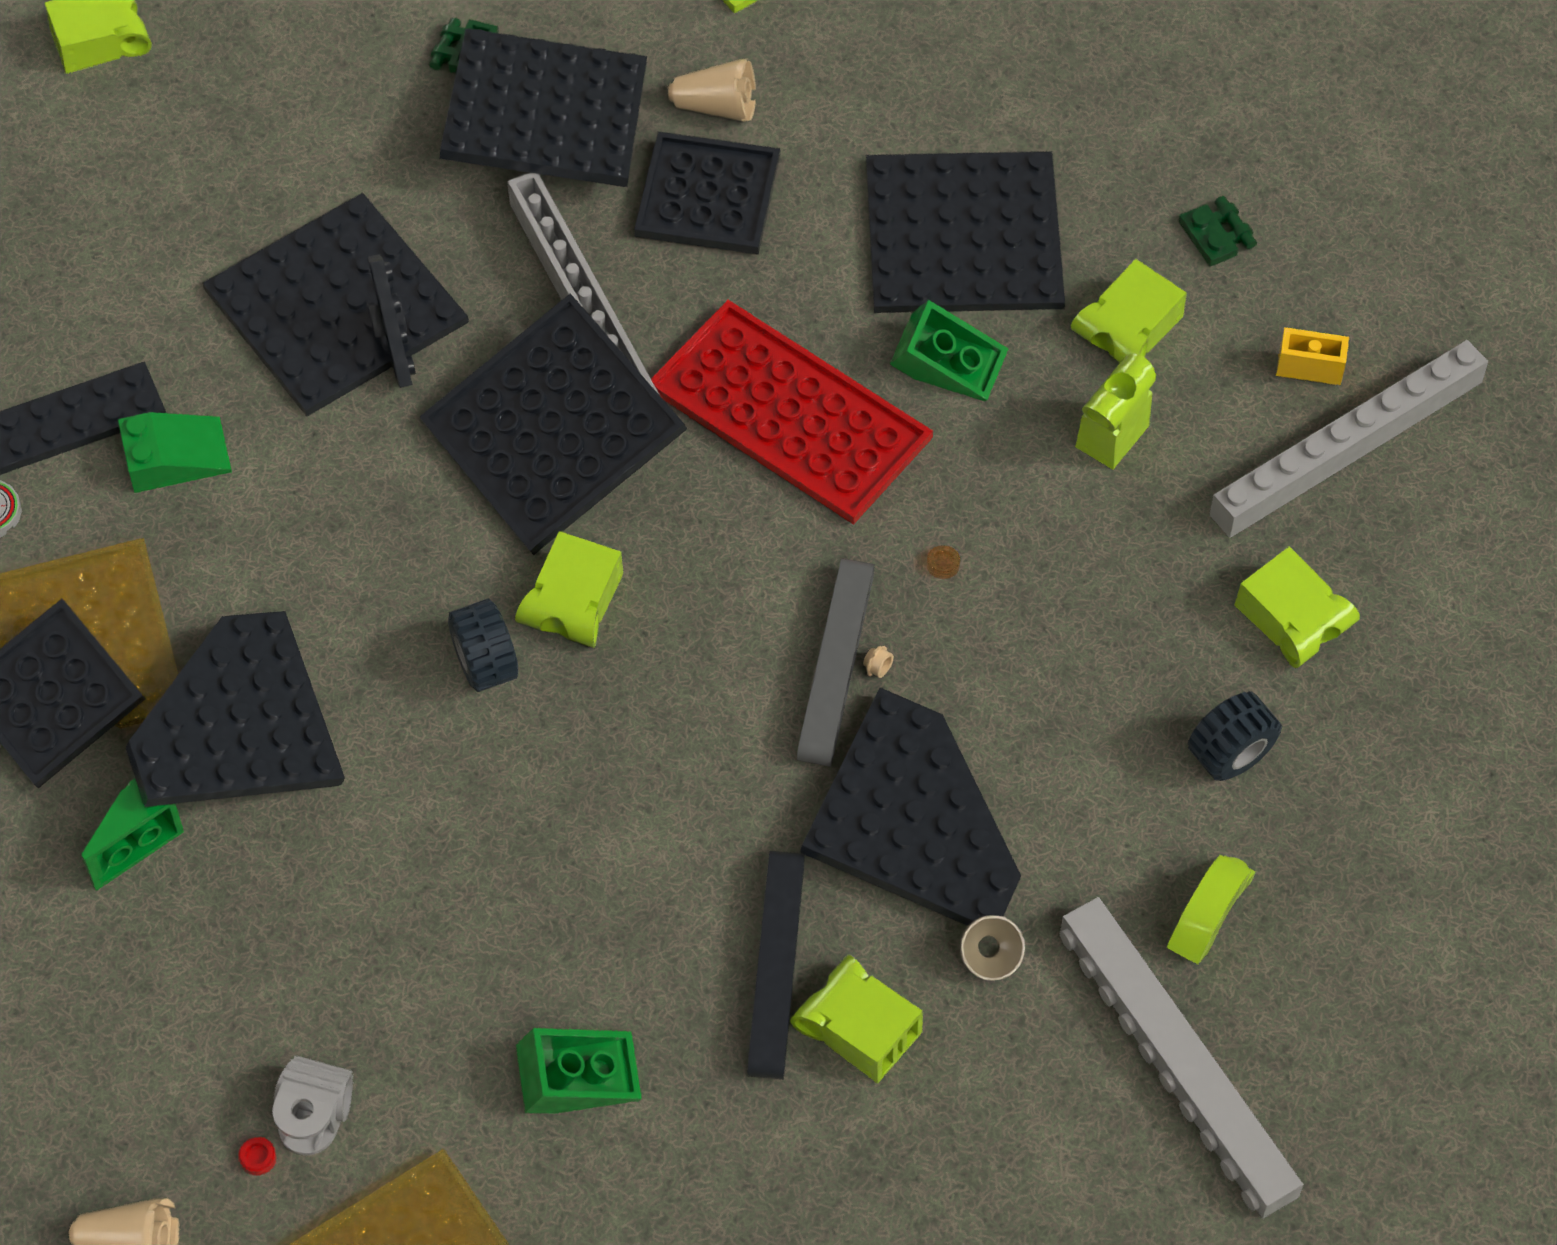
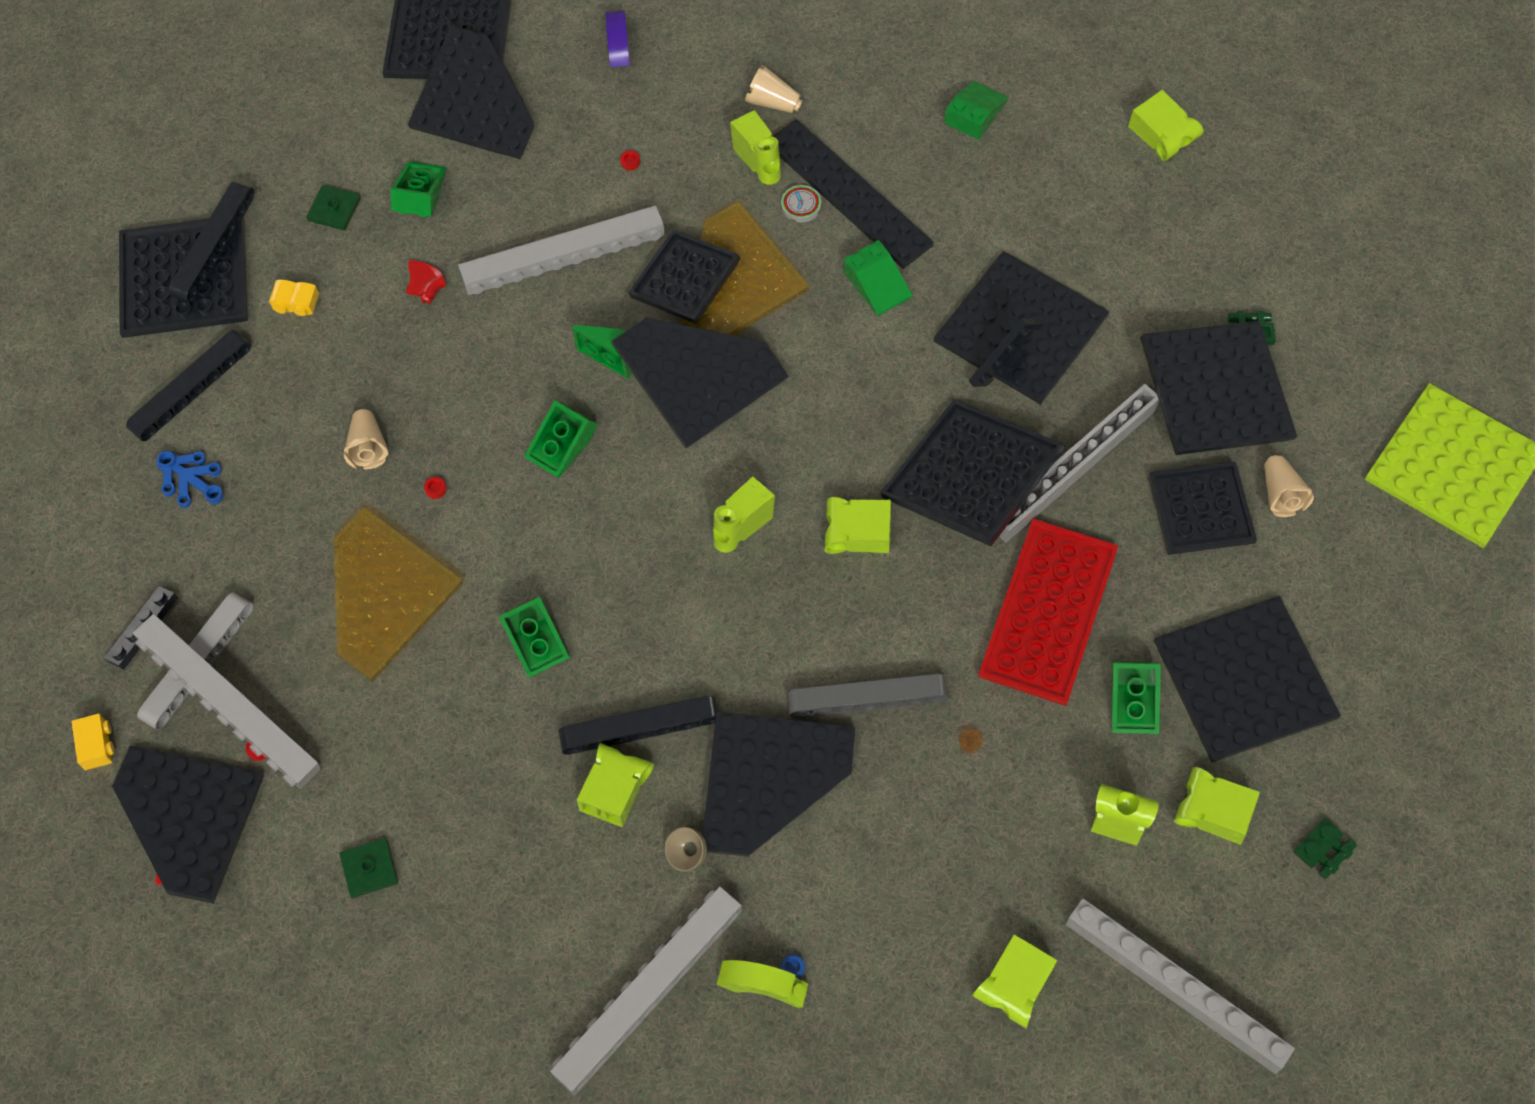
camera: 75 degrees right, 5 degrees up
(256, 948) = (560, 438): none -> green slope
(315, 1093) = (472, 503): light grey piece -> none
(483, 645) = (795, 485): black wheel -> none
(500, 728) = (742, 515): none -> lime piece
(878, 661) = (877, 721): tan plate -> none
(1194, 867) = (794, 965): none -> blue tile
(1234, 736) = (891, 961): black wheel -> none
(1312, 356) = (1236, 940): yellow brick -> none

